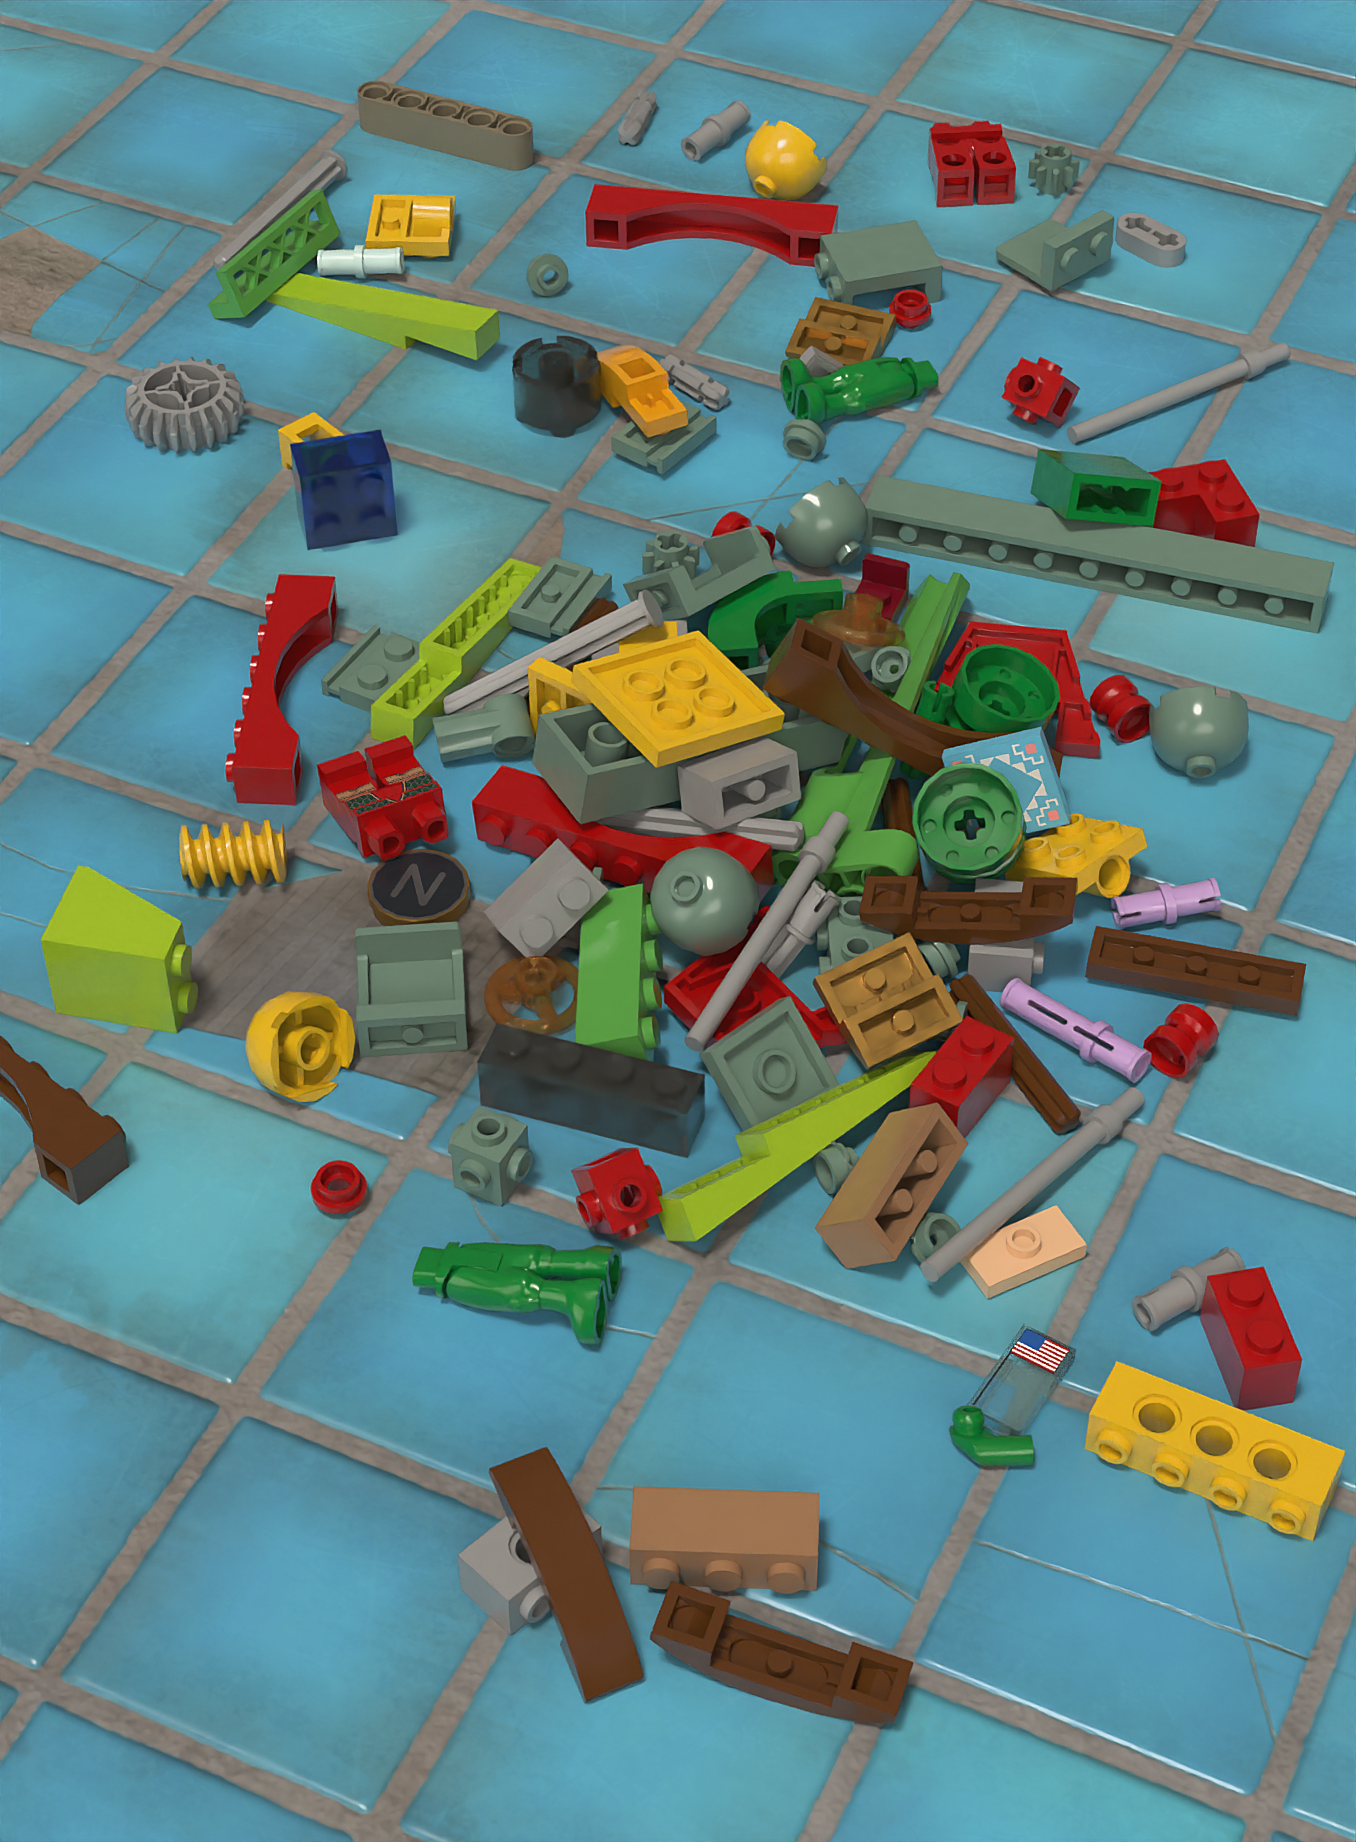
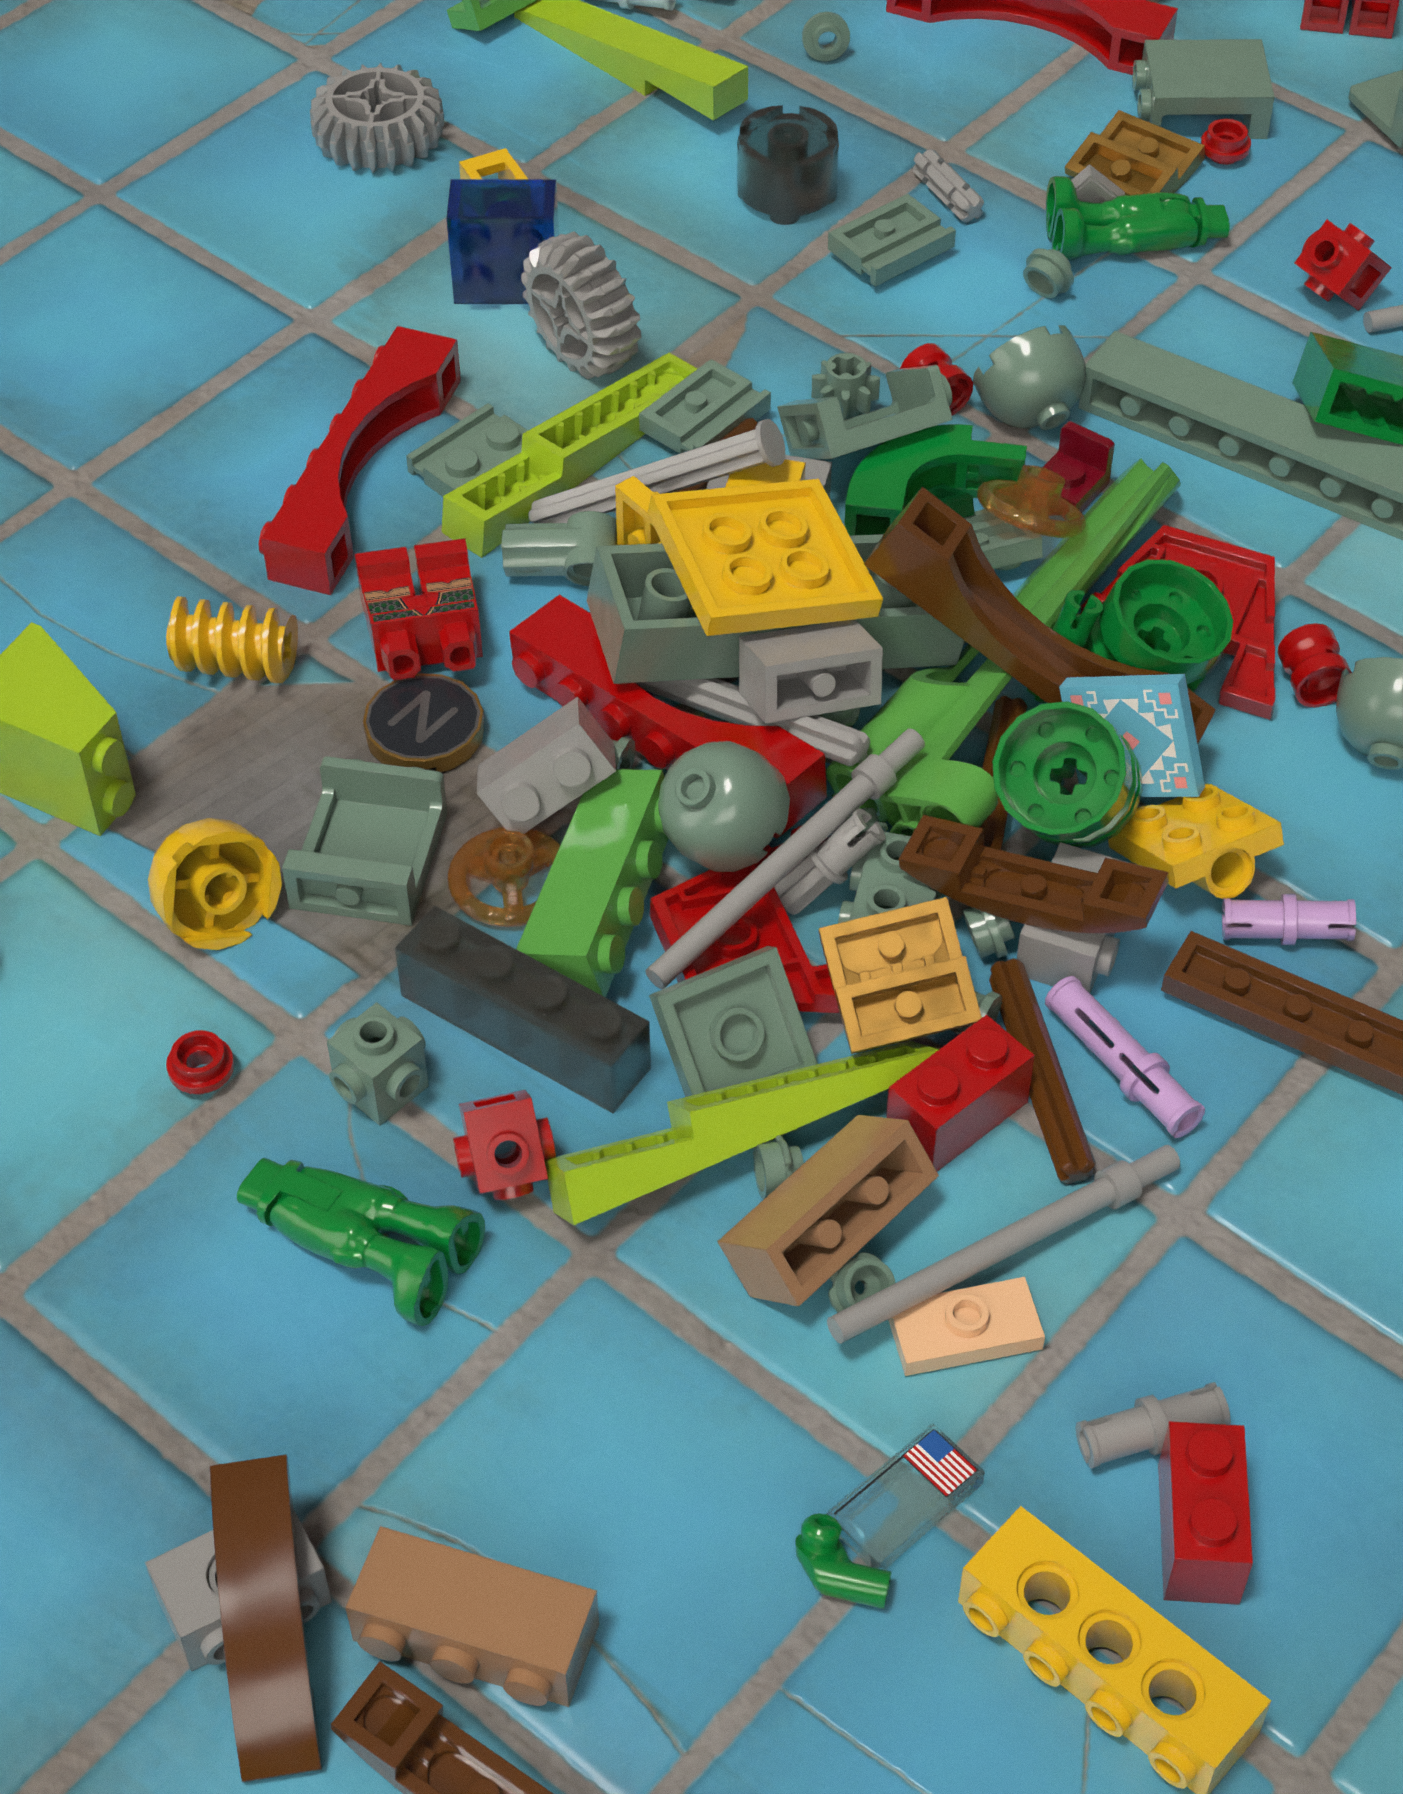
camera: 15 degrees right, 5 degrees up
(431, 530) = (581, 304): none -> light grey gear
(642, 388) = (875, 181): light orange slope -> none
(884, 661) = (1045, 556): sand green plate -> none
(1181, 1039) = (1254, 1094): red wheel -> none

